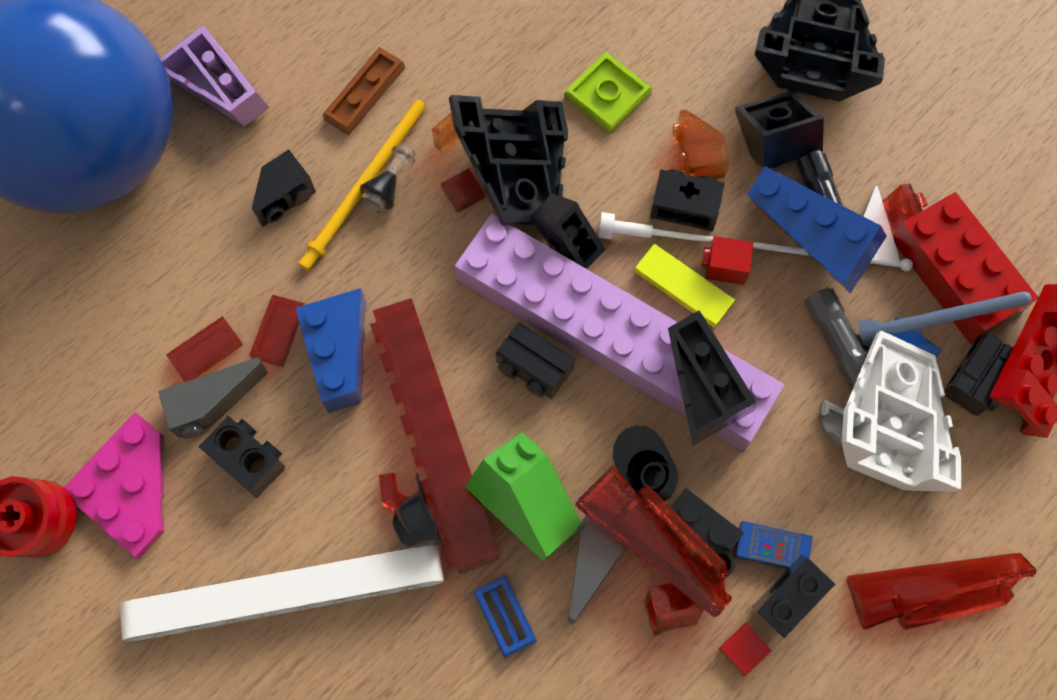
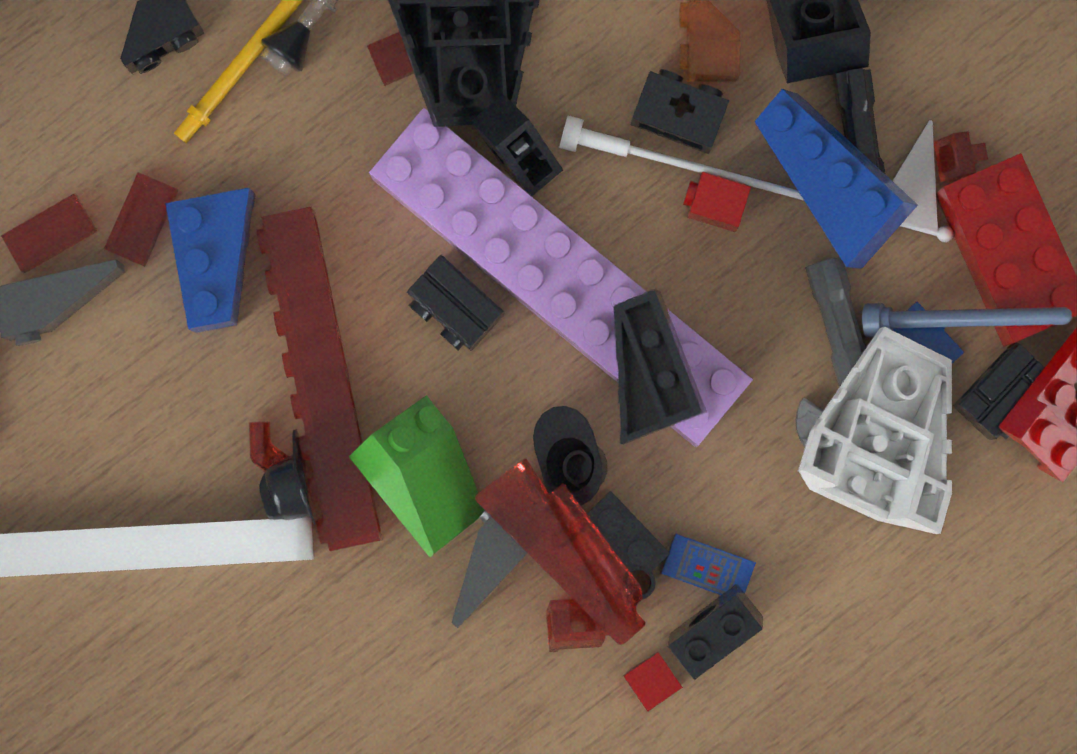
camera: 10 degrees right, 15 degrees up
(239, 460) = (81, 385): black brick -> none
(491, 588) = (368, 573): blue tile -> none
(684, 285) = (658, 225): neon yellow tile -> none
(936, 590) = (889, 643): clear red wedge -> none

